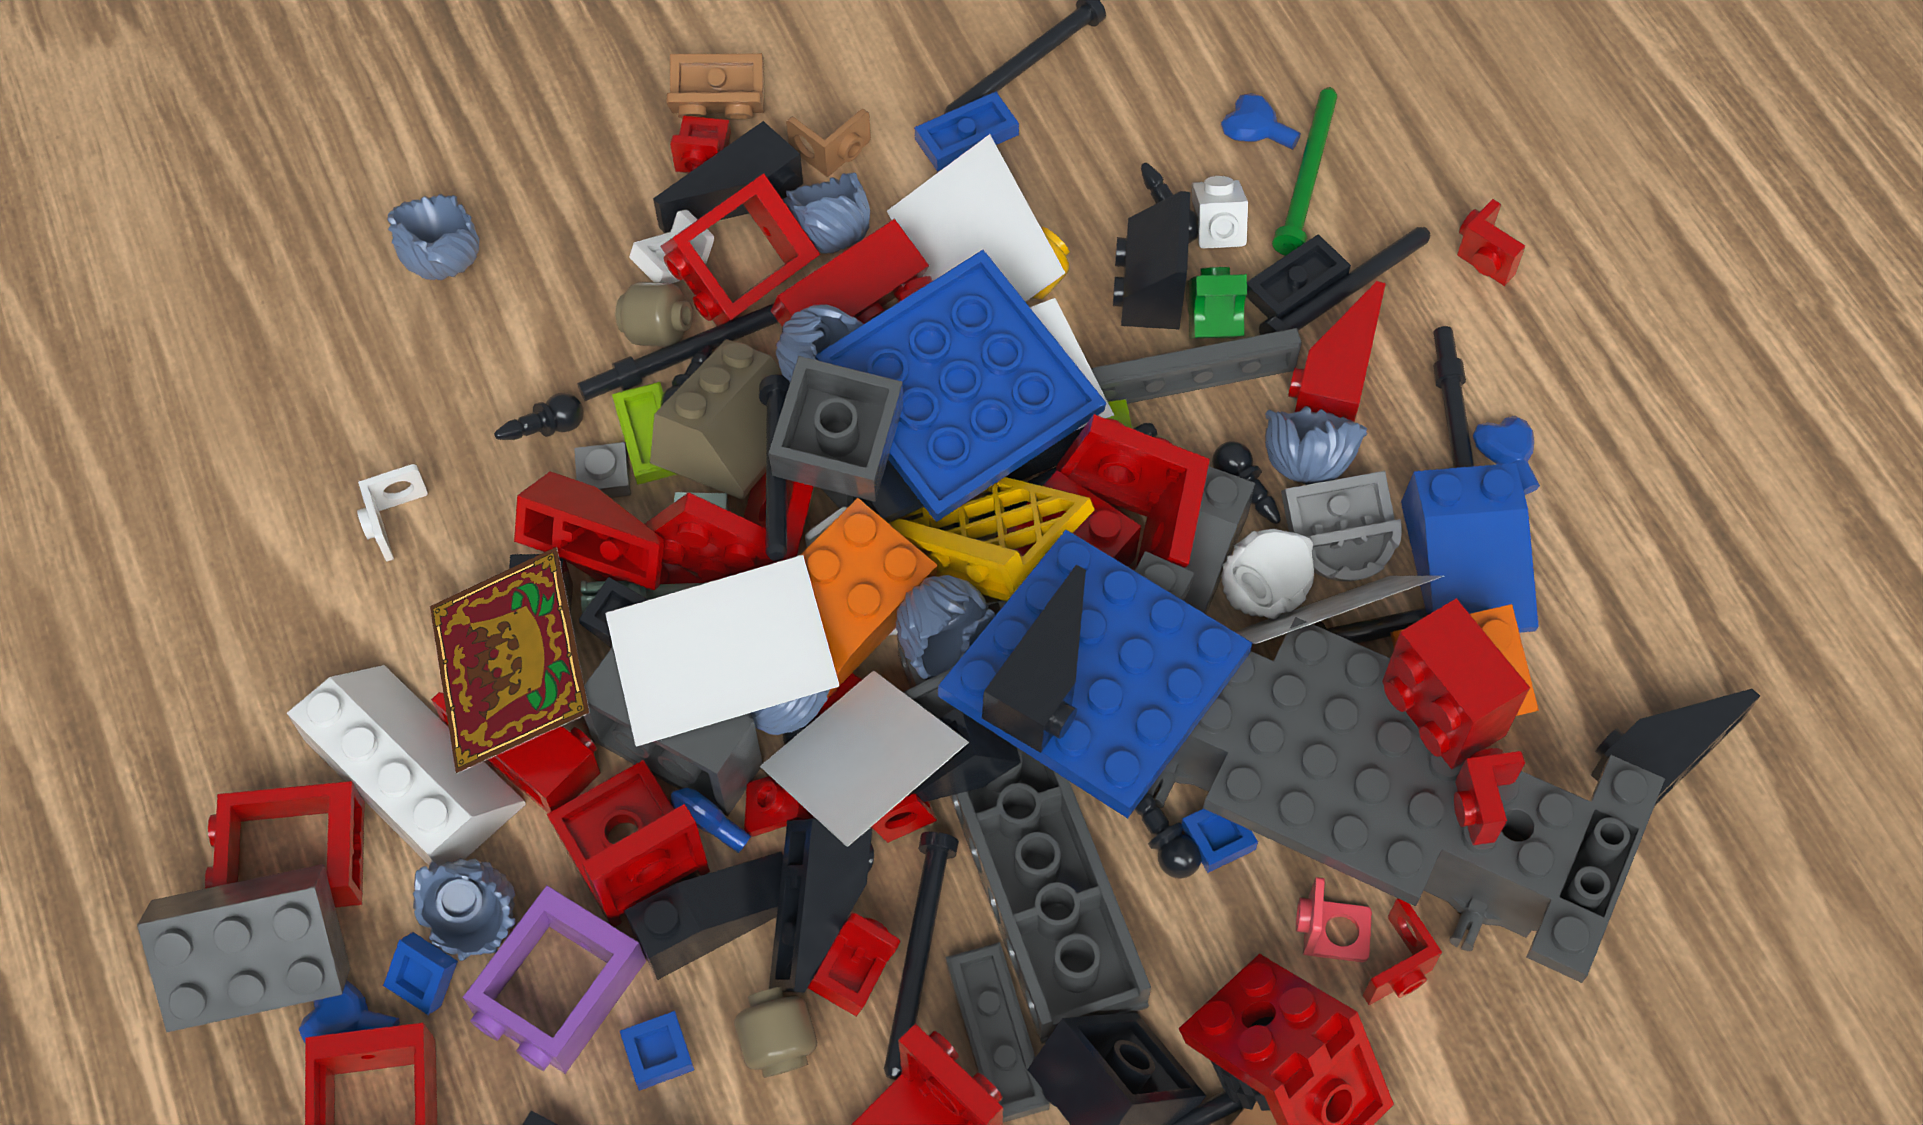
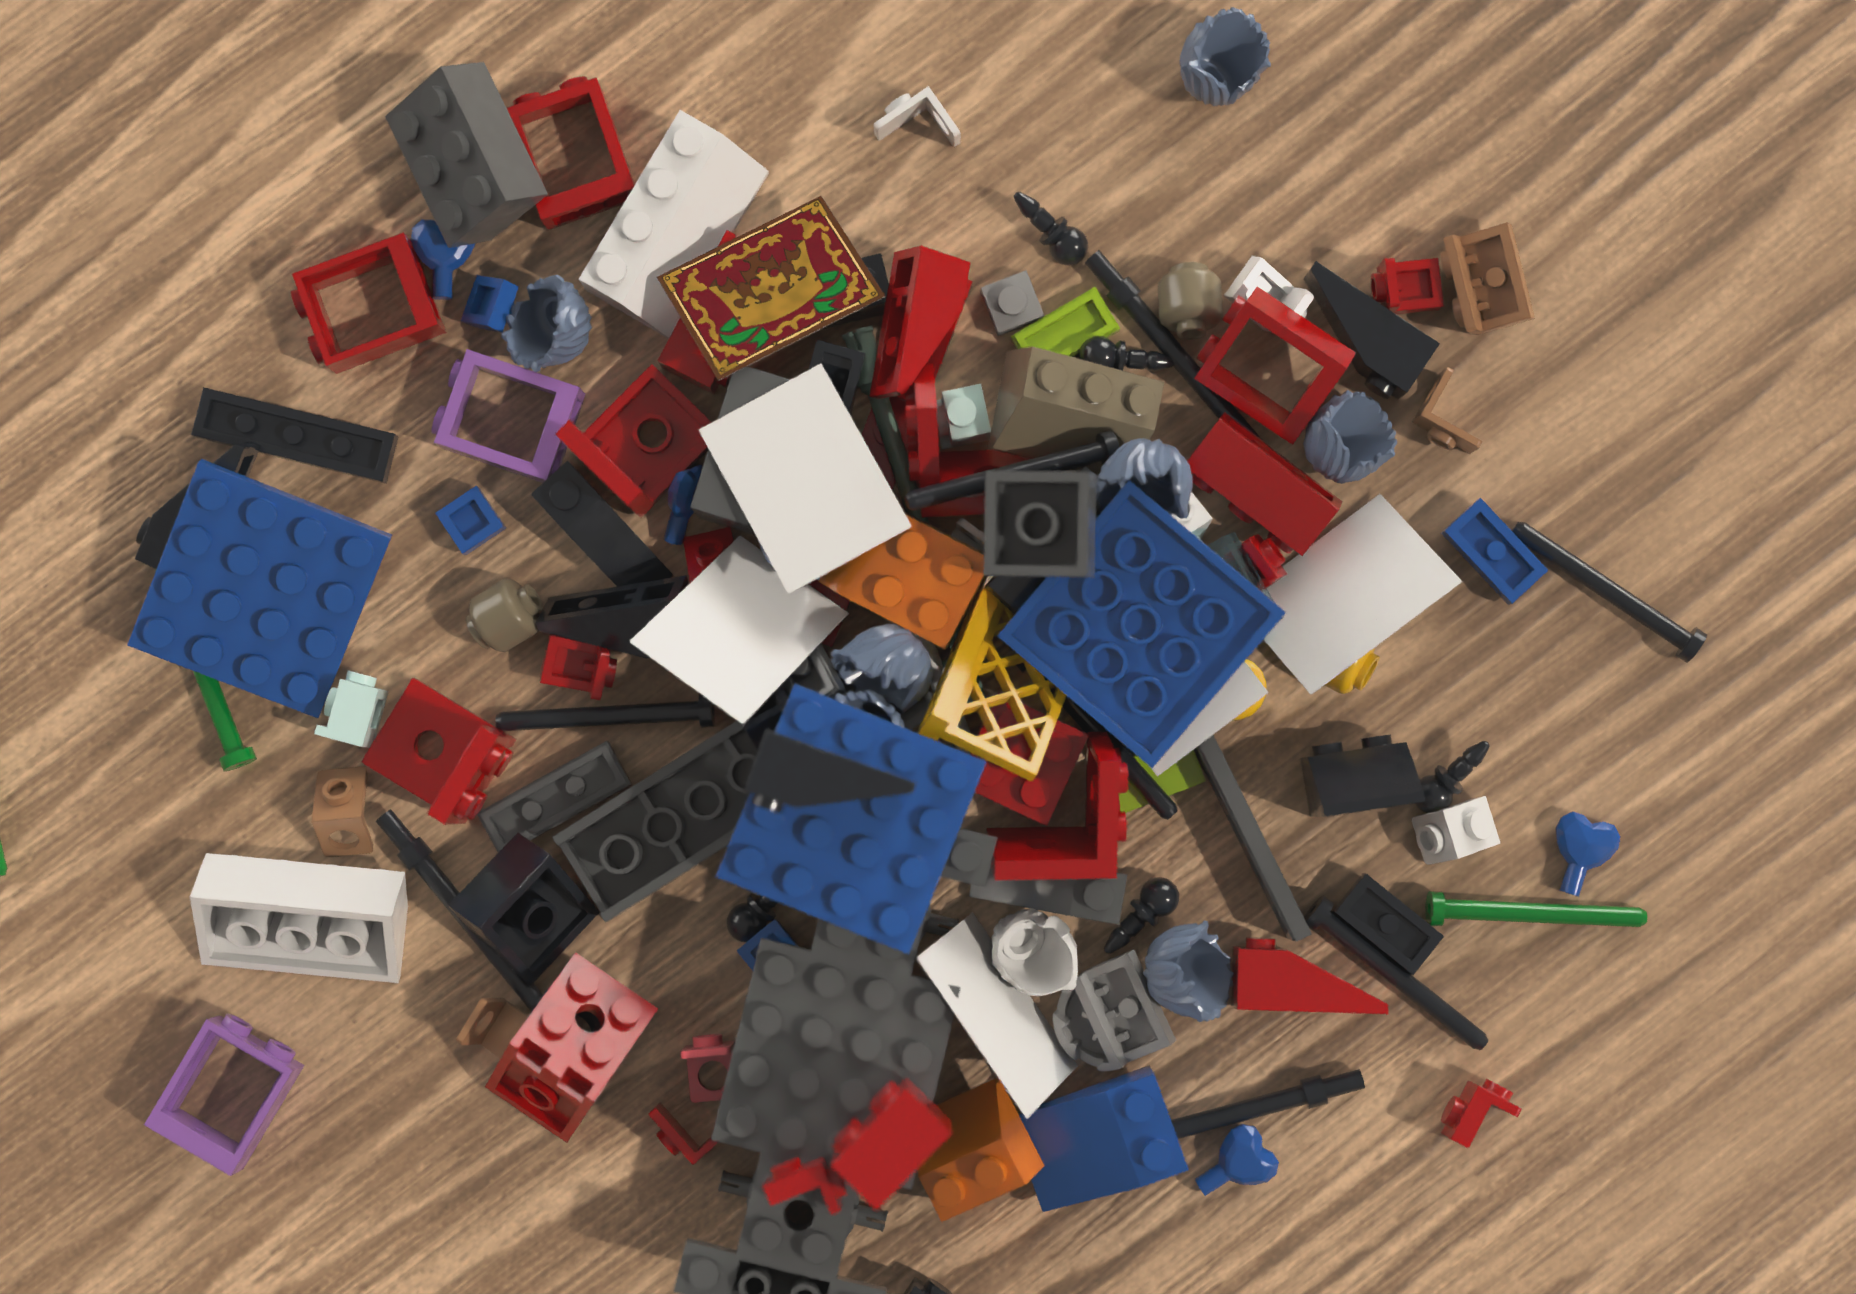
camera: 75 degrees right, 25 degrees up
(1216, 303) = (1329, 848): green brick -> none

